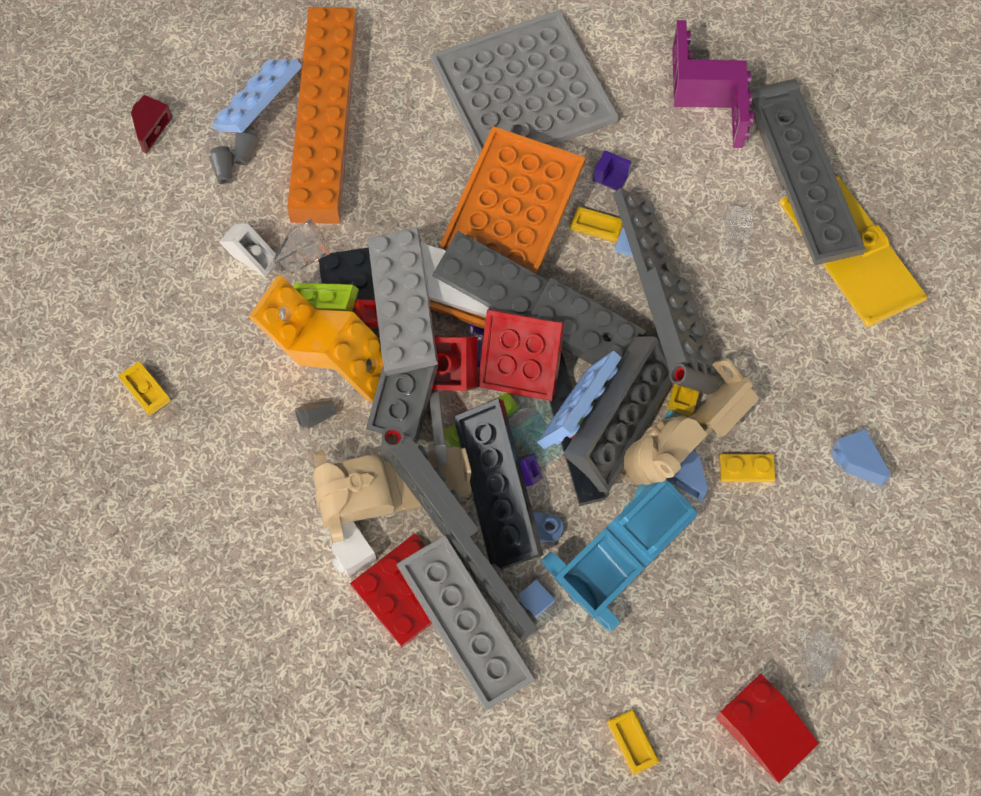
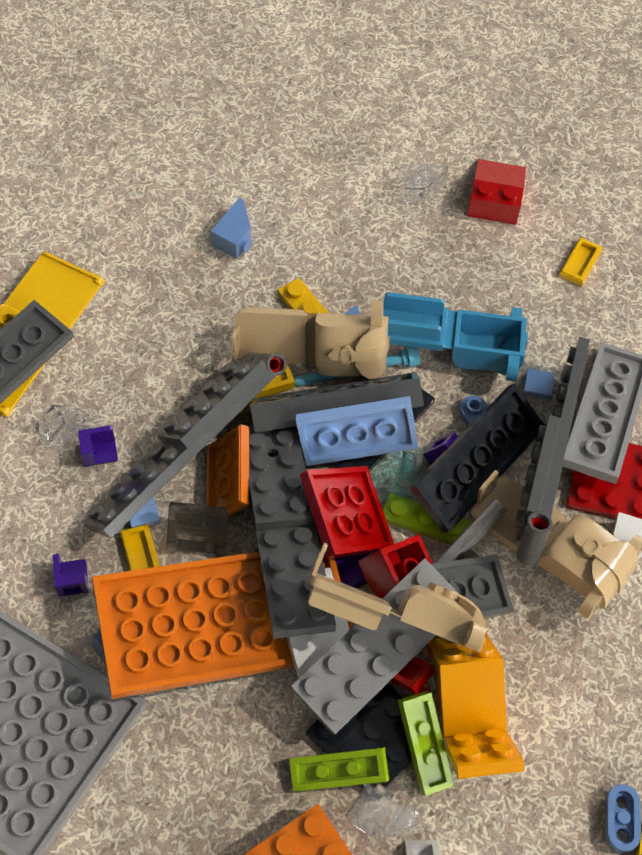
camera: 130 degrees left, 5 degrees down
(182, 389) = (621, 819): none -> medium blue plate
(314, 412) = (538, 668): dark grey cone -> none
(349, 240) = (339, 769): none -> lime plate
(388, 312) = (427, 608): none -> tan piece
(586, 260) = (197, 521): none -> clear smoke plate
(615, 302) = (228, 470): none -> orange tile
(706, 240) = (98, 446): none -> dark purple panel

